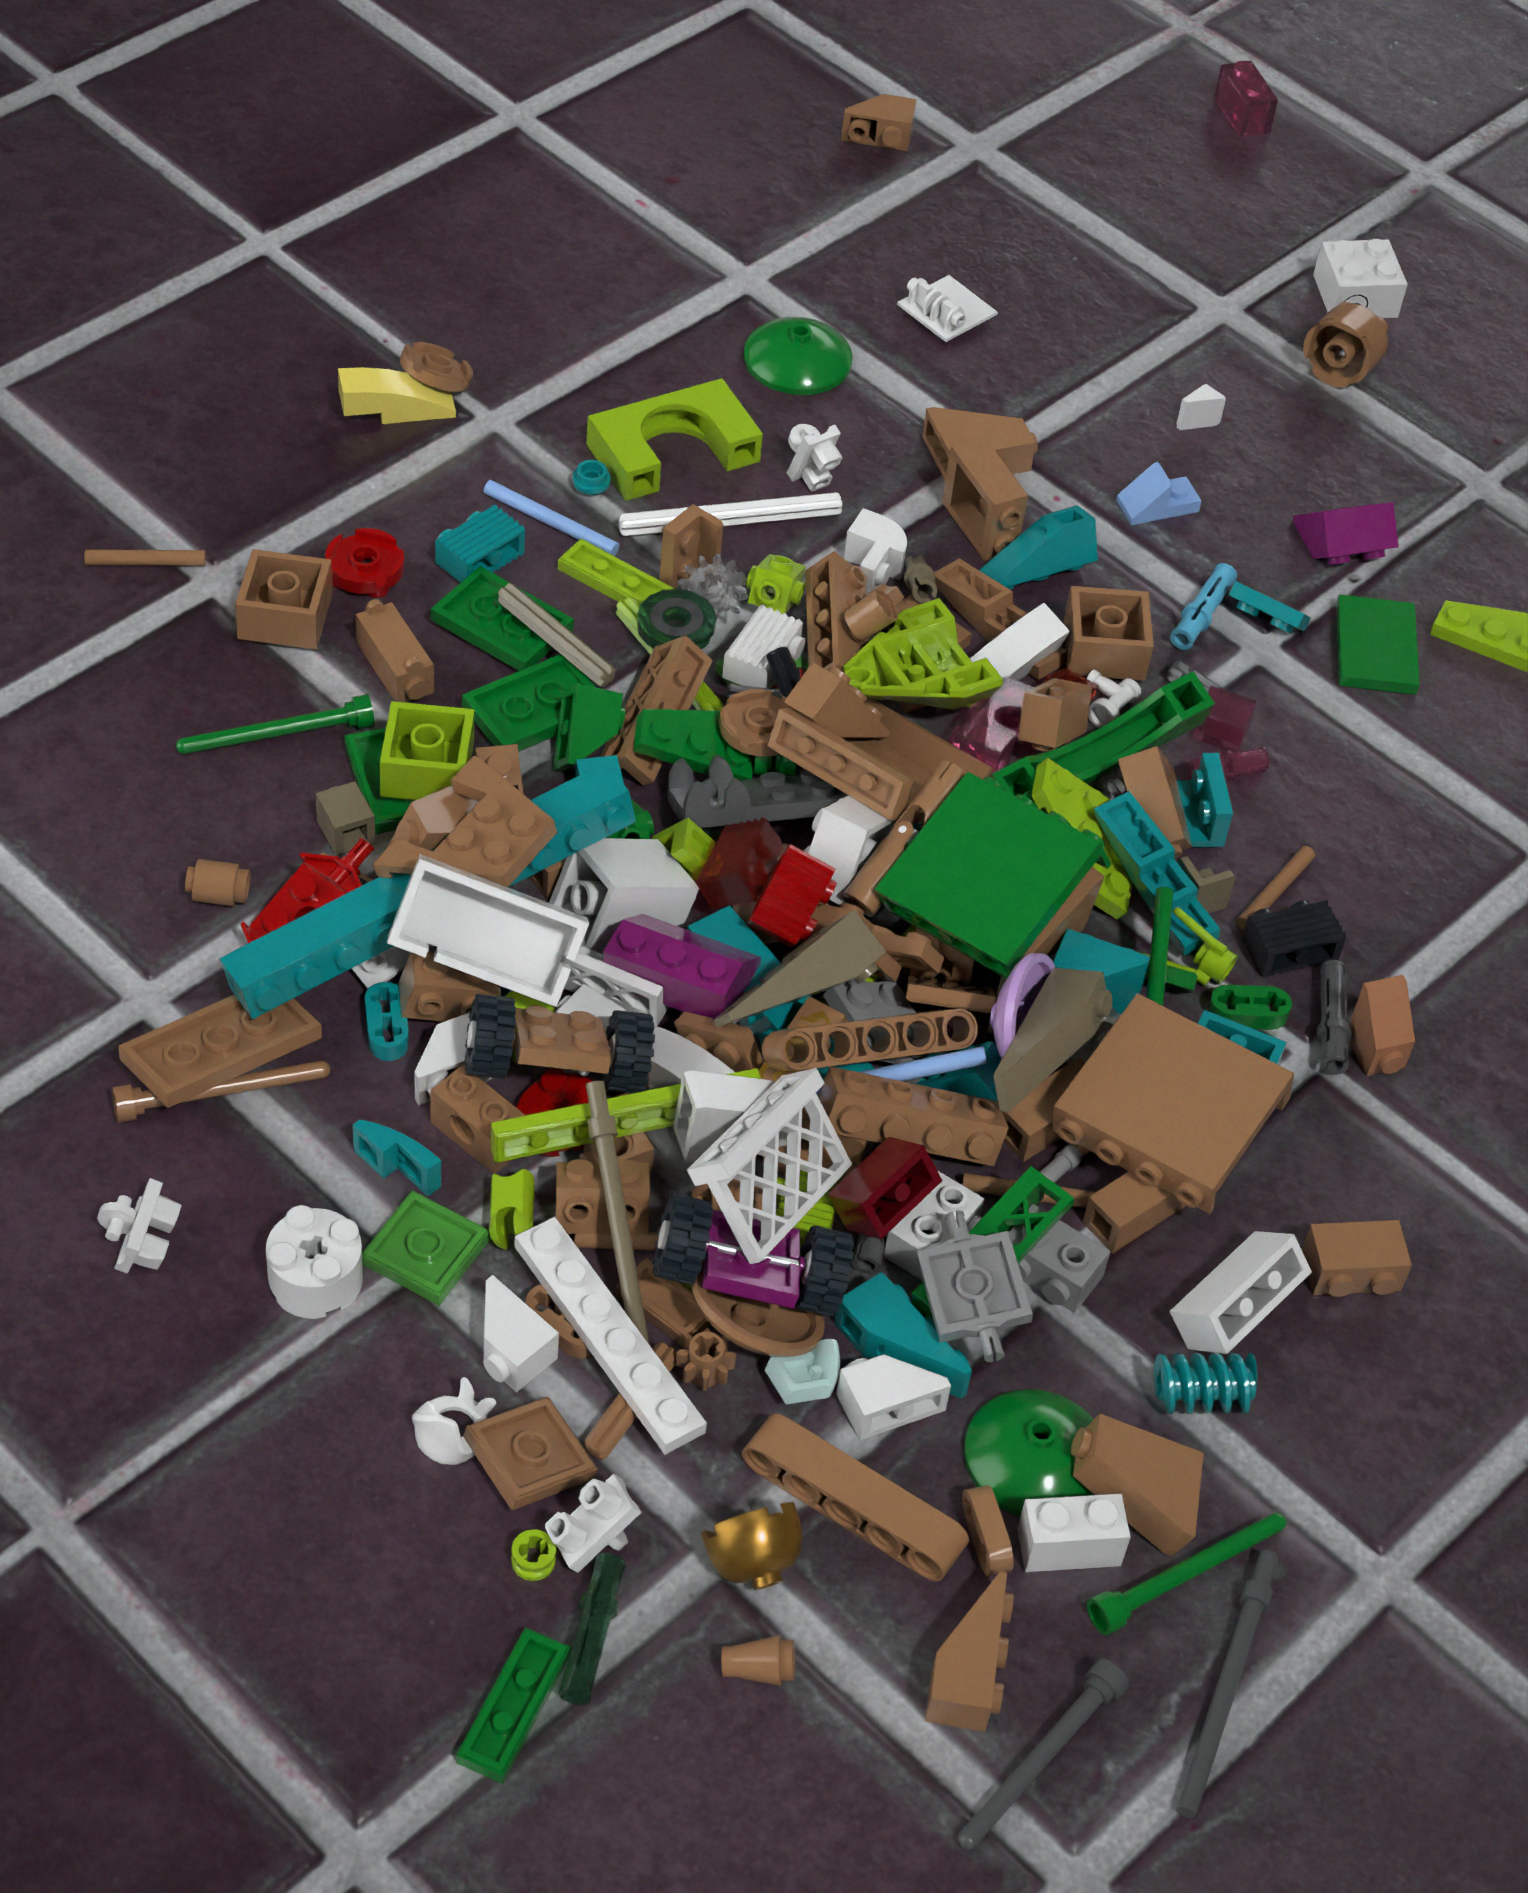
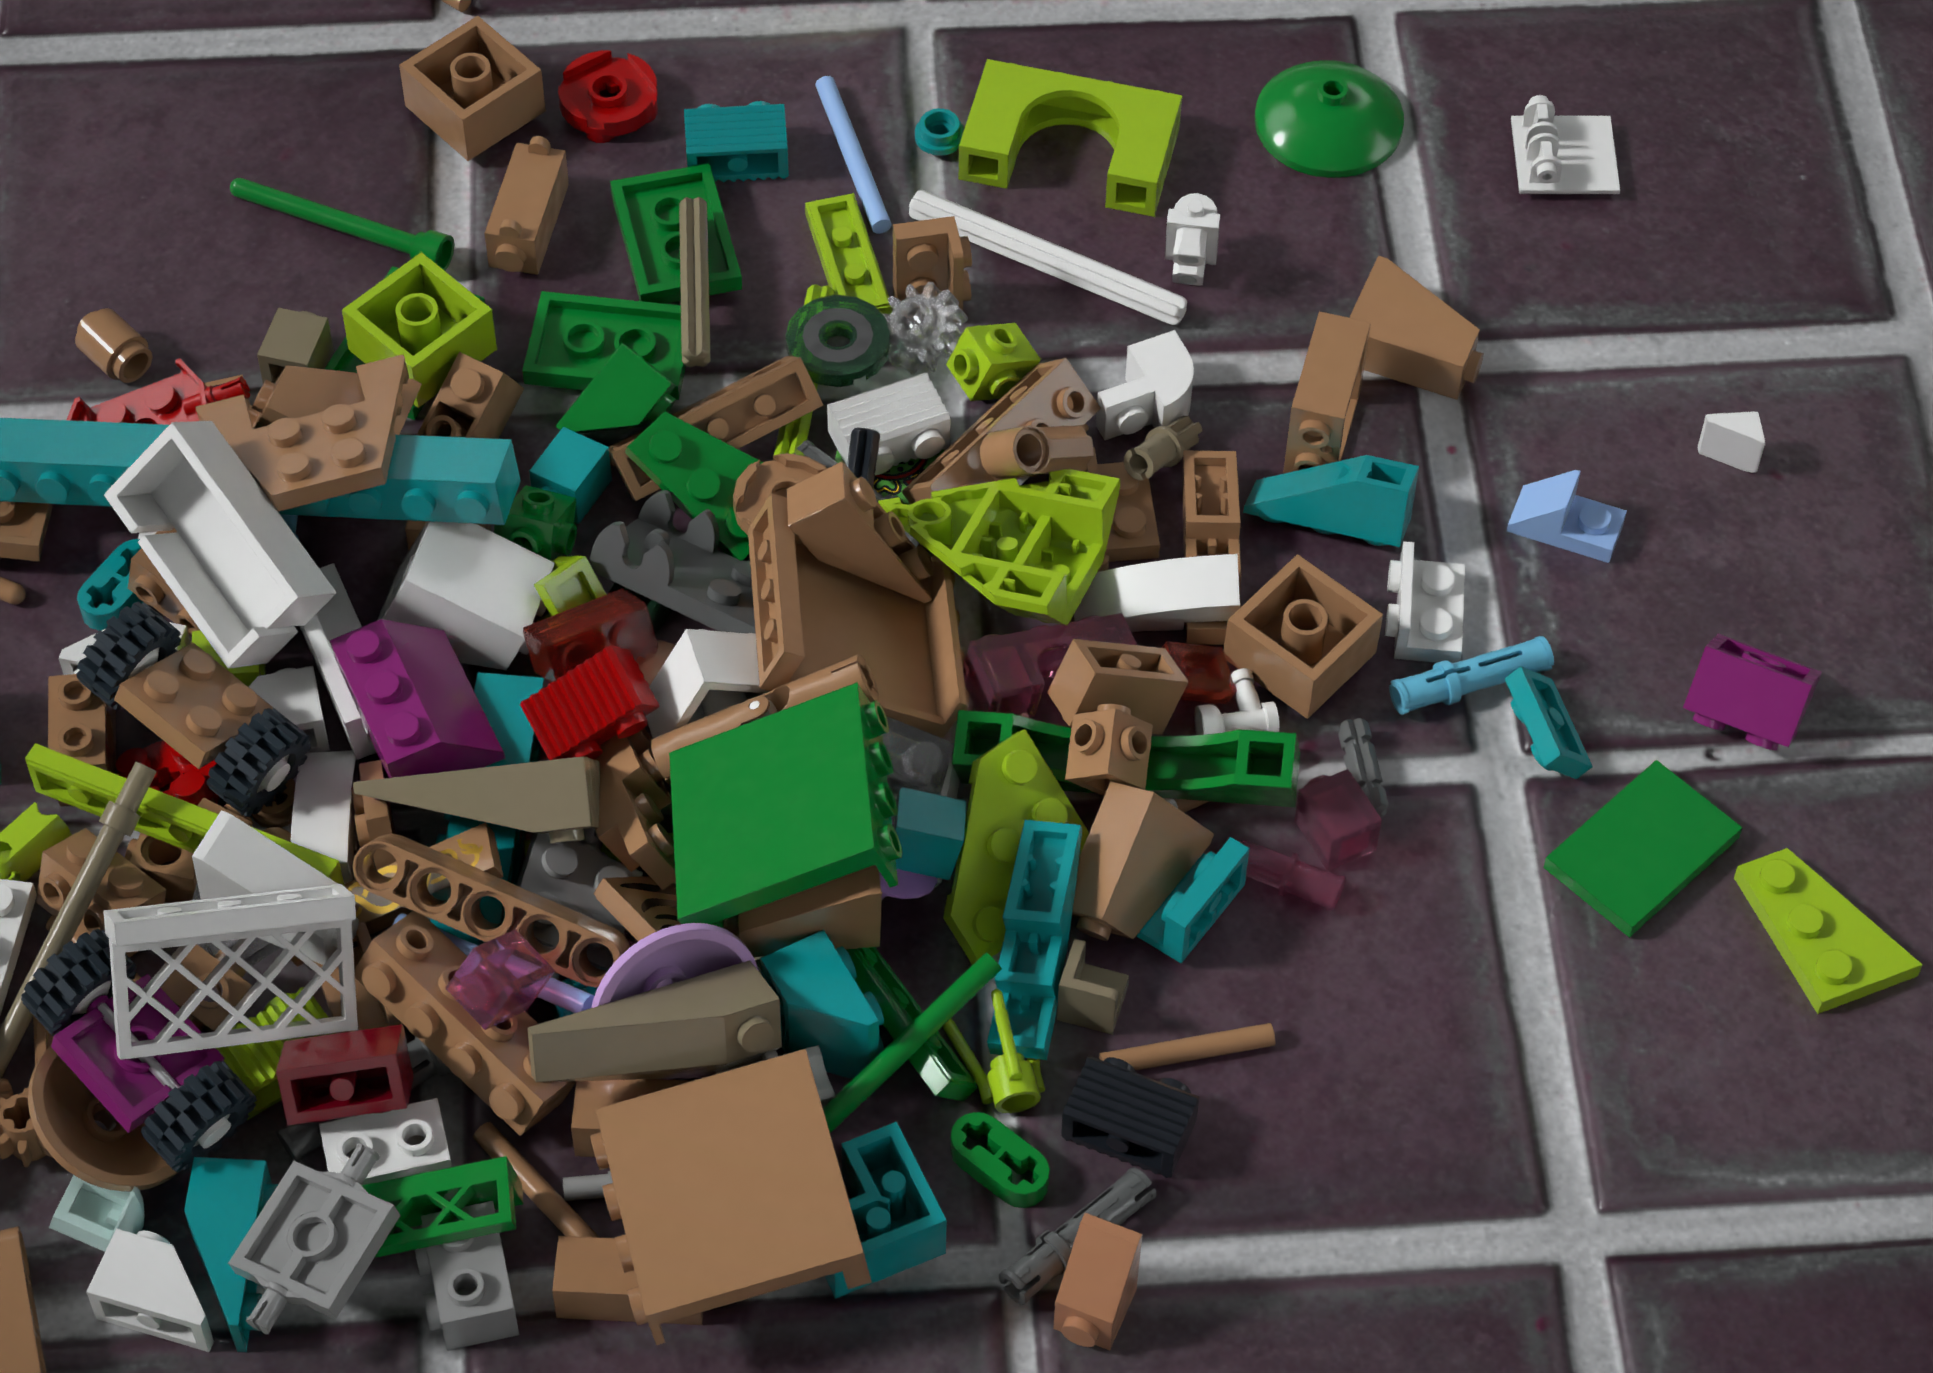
camera: 45 degrees right, 5 degrees up
(930, 1068) = (500, 979): none -> clear pink brick
(1096, 743) = (1108, 748): none -> medium nougat brick
(1138, 574) = (1428, 608): none -> white bracket

